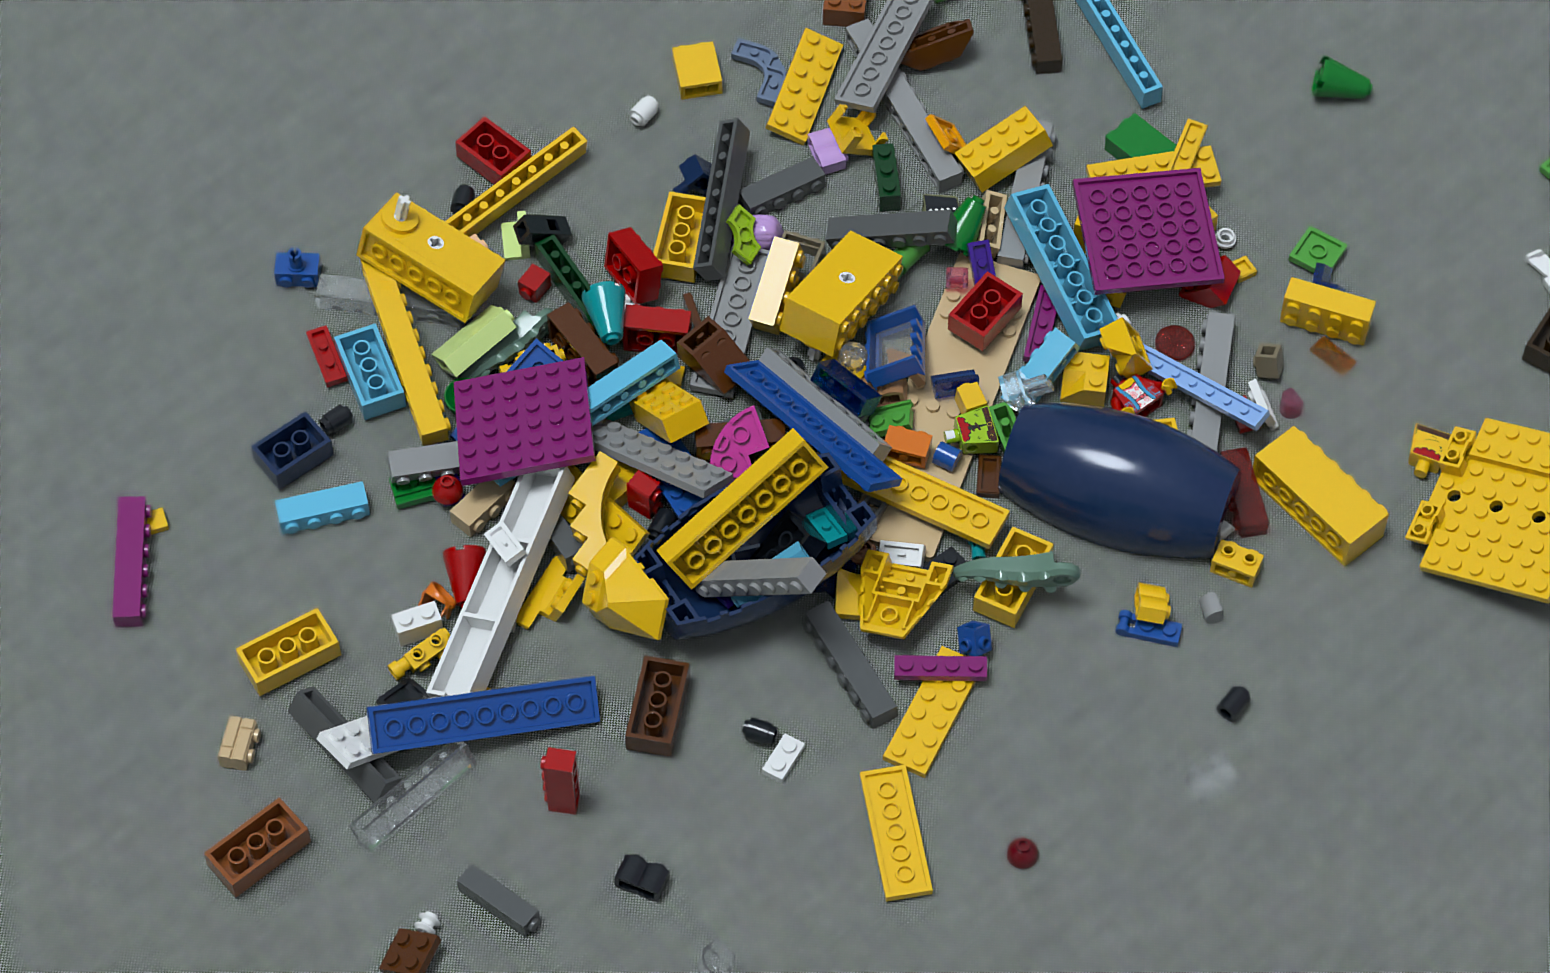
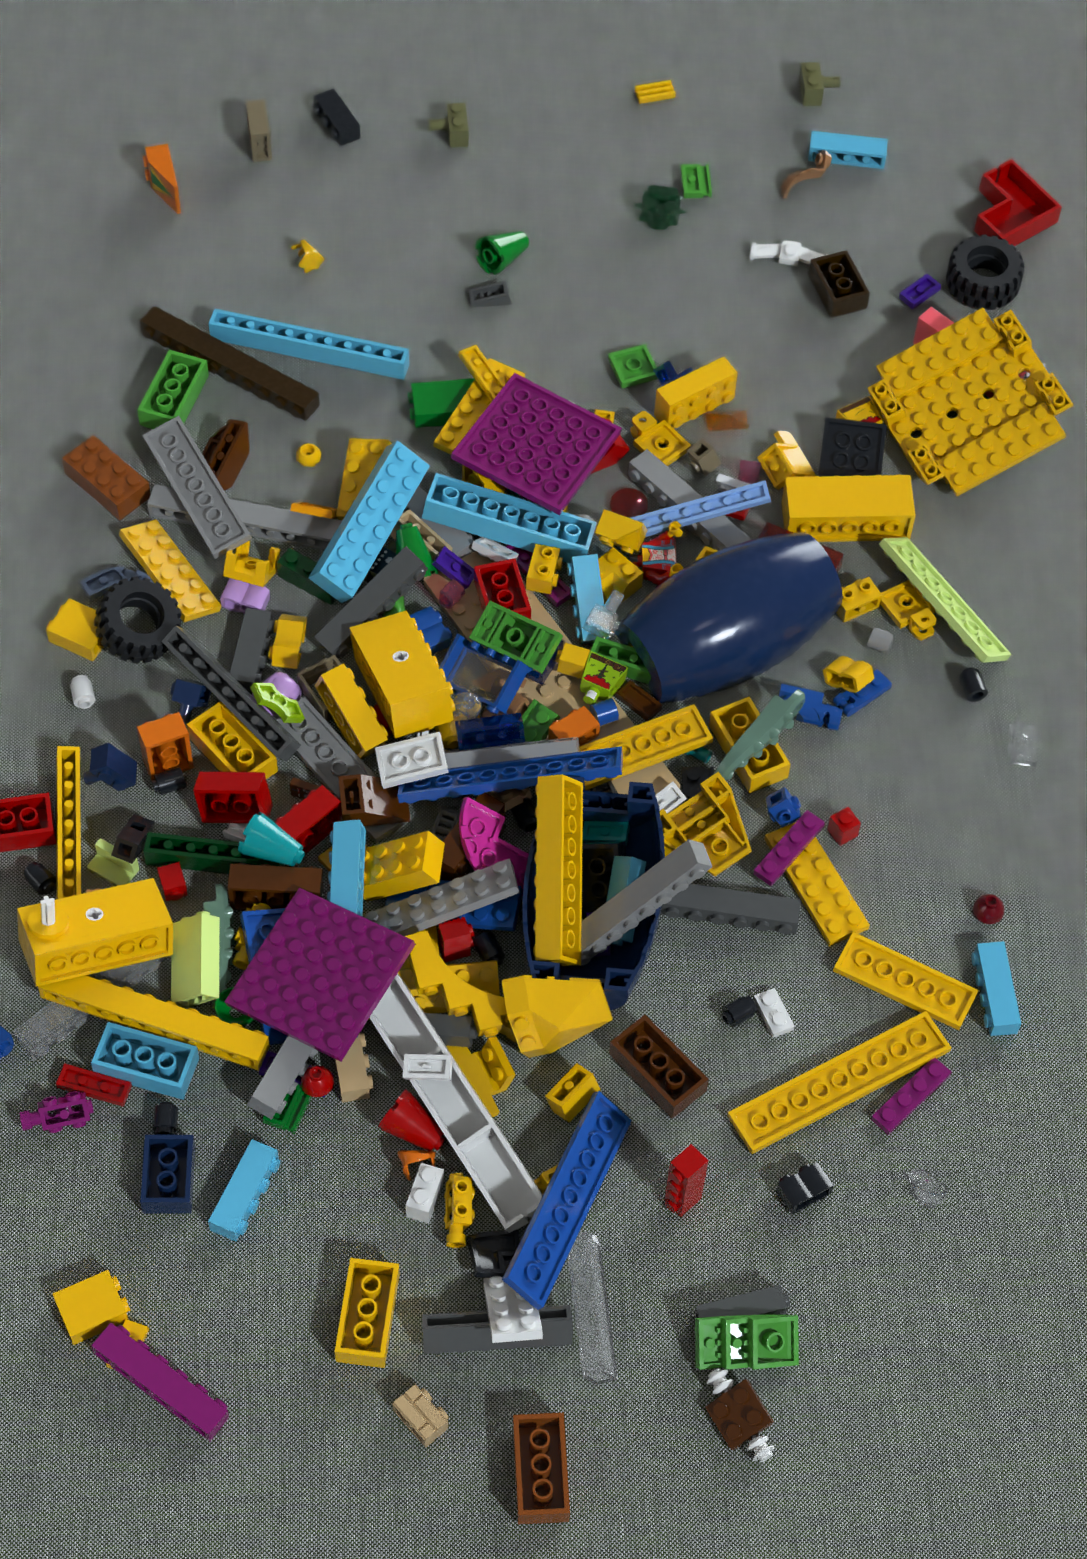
camera: 55 degrees left, 0 degrees up
(153, 477) = (91, 1306): none -> yellow brick
(294, 357) = (64, 1114): none -> magenta brick
(472, 918) = (746, 1341): none -> bright green slope
(582, 661) = (572, 1092): none -> yellow brick
(591, 174) = (112, 767): none -> dark blue brick
(617, 218) = (169, 781): none -> black brick
(635, 192) = (165, 744): none -> orange brick
(735, 69) = (145, 596): none -> black tyre
(760, 843) = (838, 1082): none -> yellow plate
(767, 353) = (411, 760): none -> white plate
(794, 904) = (911, 1096): none -> magenta plate
(811, 206) = (290, 635): none -> yellow brick
(914, 289) = (433, 630): none -> blue brick
(943, 342) = (516, 636): none -> bright green brick
(947, 902) = (997, 988): none -> medium azure brick
(959, 173) = (369, 522): none -> medium azure brick
(1000, 695) = (844, 826): none -> red brick
(1003, 103) = (305, 459): none -> yellow plate
(1027, 280) = (493, 550): none -> white plate
(1038, 321) = (543, 569): none -> yellow brick
(1095, 600) = (813, 710): none -> blue plate
(1259, 311) = (651, 434): none -> yellow plate
(1266, 617) = (917, 615): none -> yellow plate
(1296, 117) = (496, 300): none -> dark grey slope
(1298, 627) = (944, 600): none -> yellowish green plate
(1332, 424) = (784, 460): none -> yellow plate
(1384, 461) = (852, 448): none -> black plate
(1505, 159) = (660, 207): none -> clear green brick

